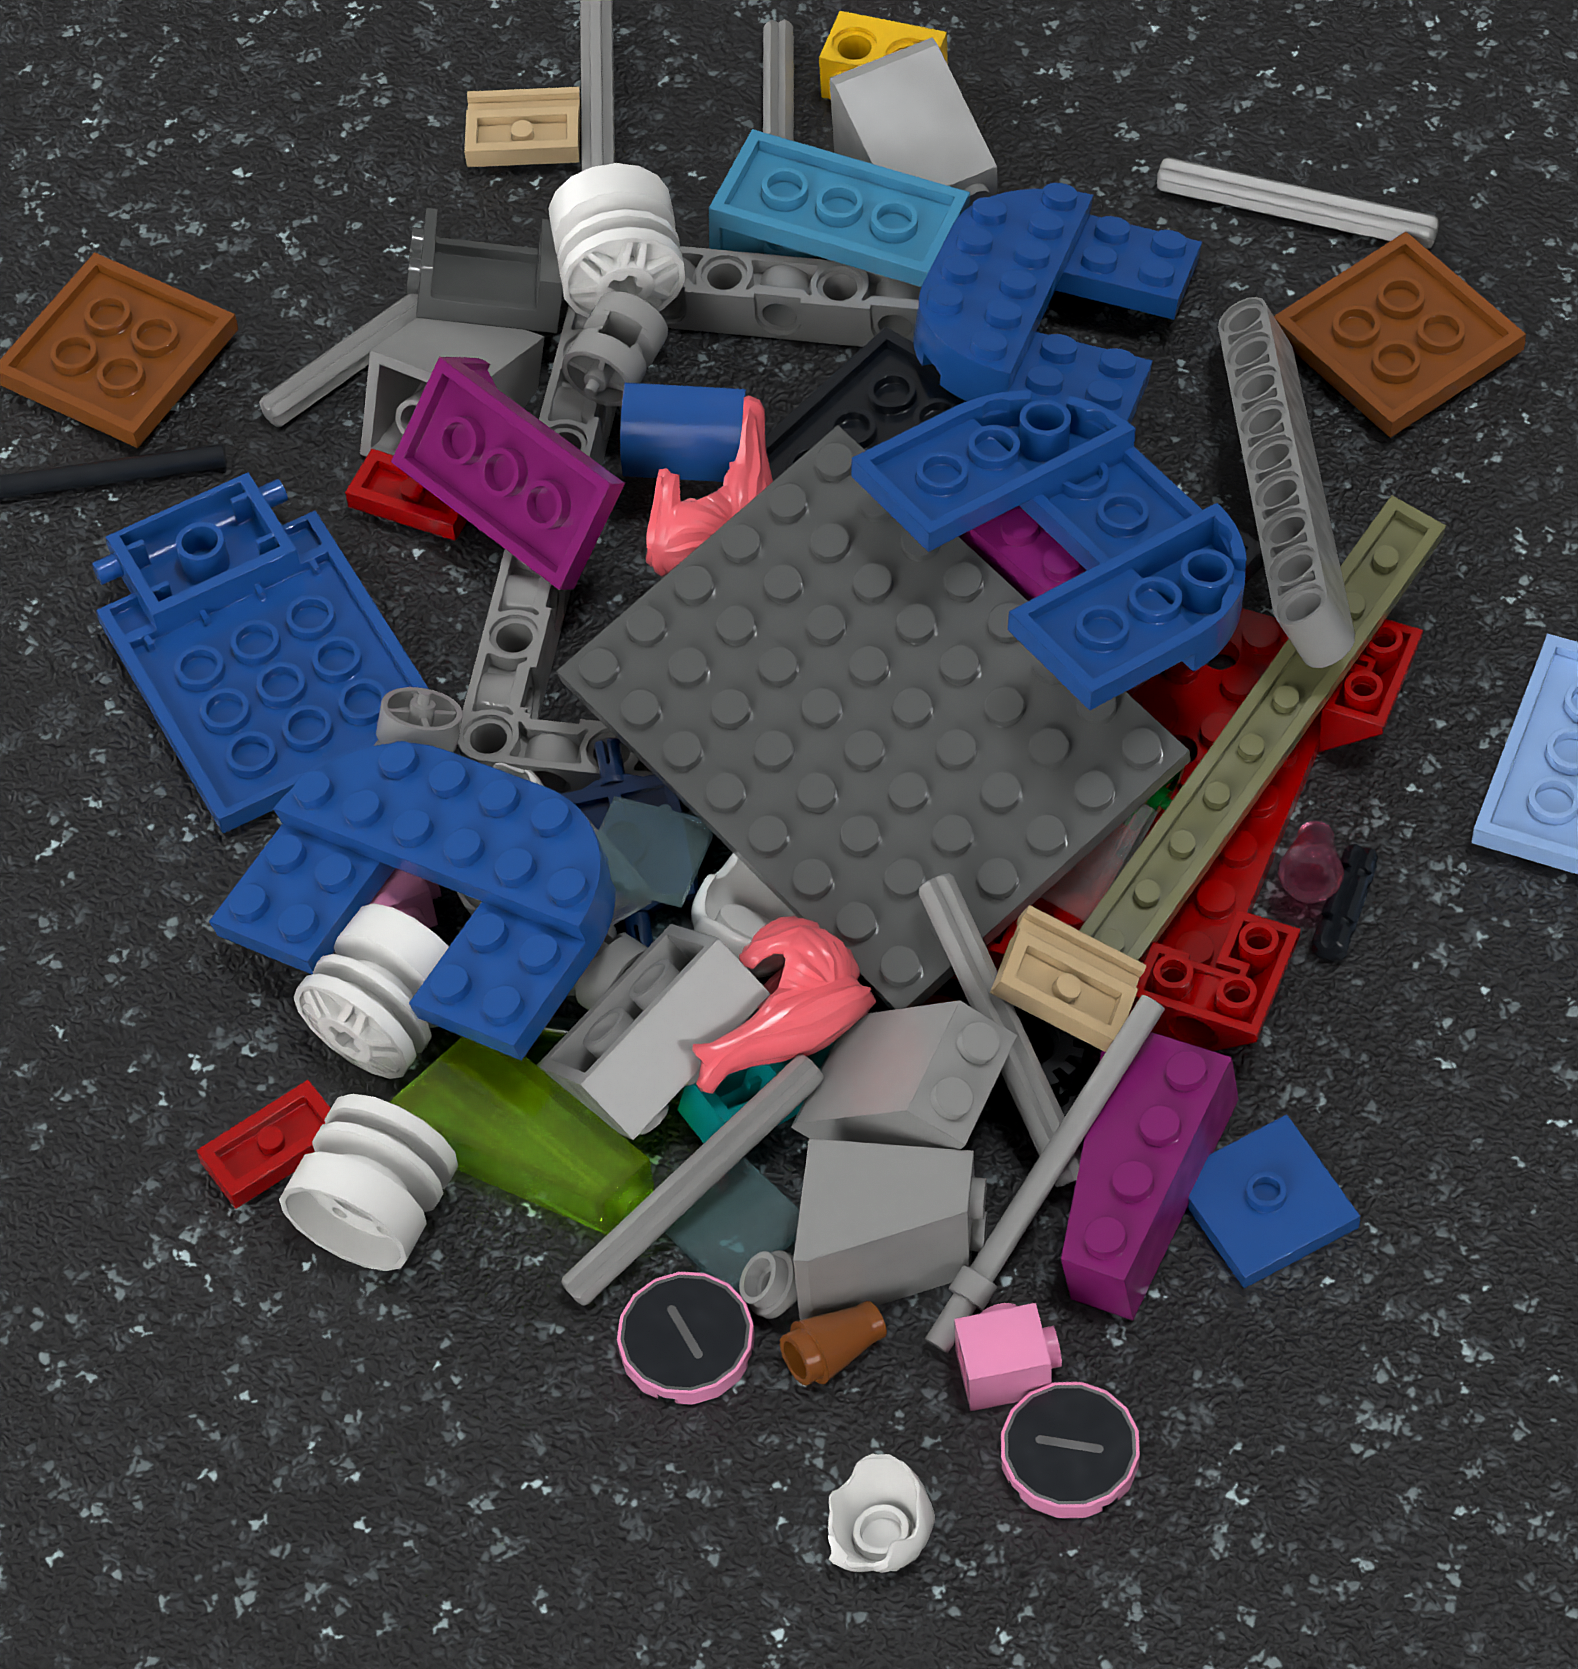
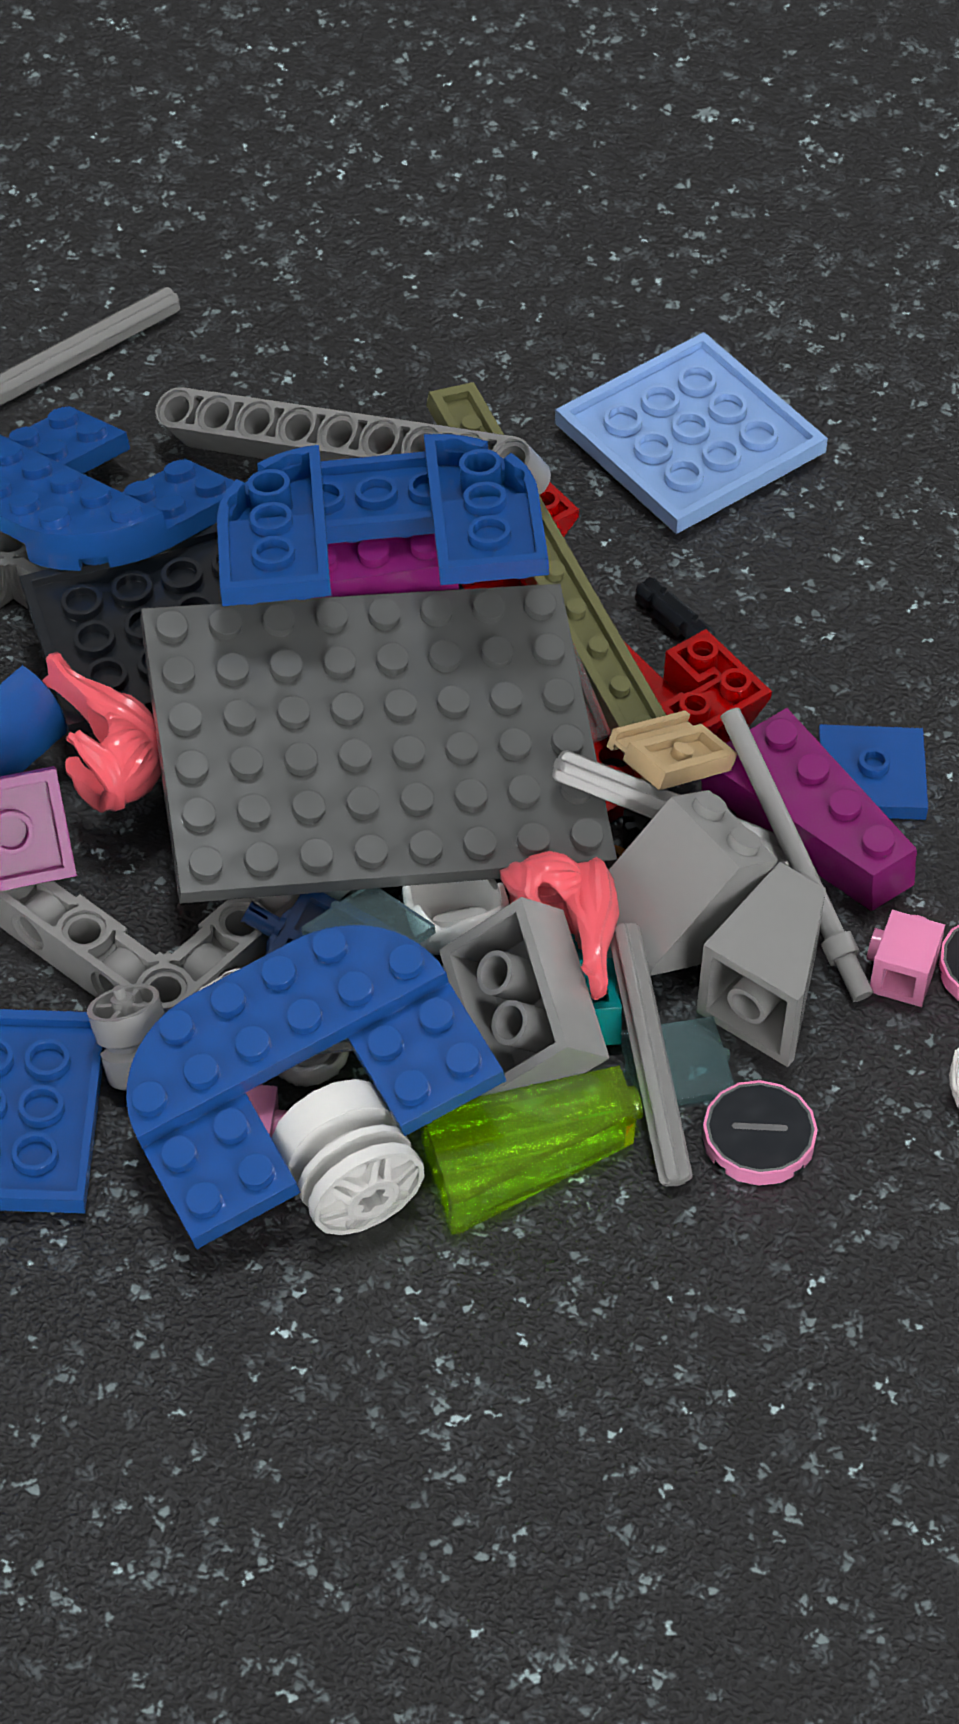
camera: 65 degrees left, 5 degrees down
(265, 1144) = (410, 1306): red plate -> none
(369, 1182) = (514, 1243): white wheel -> none
(769, 1283) = (741, 1060): light grey plate -> none
(829, 1342) = (827, 1051): dark orange cone -> none
(1311, 864) = (642, 607): clear pink cone -> none
(1399, 334) = (246, 348): dark orange plate -> none

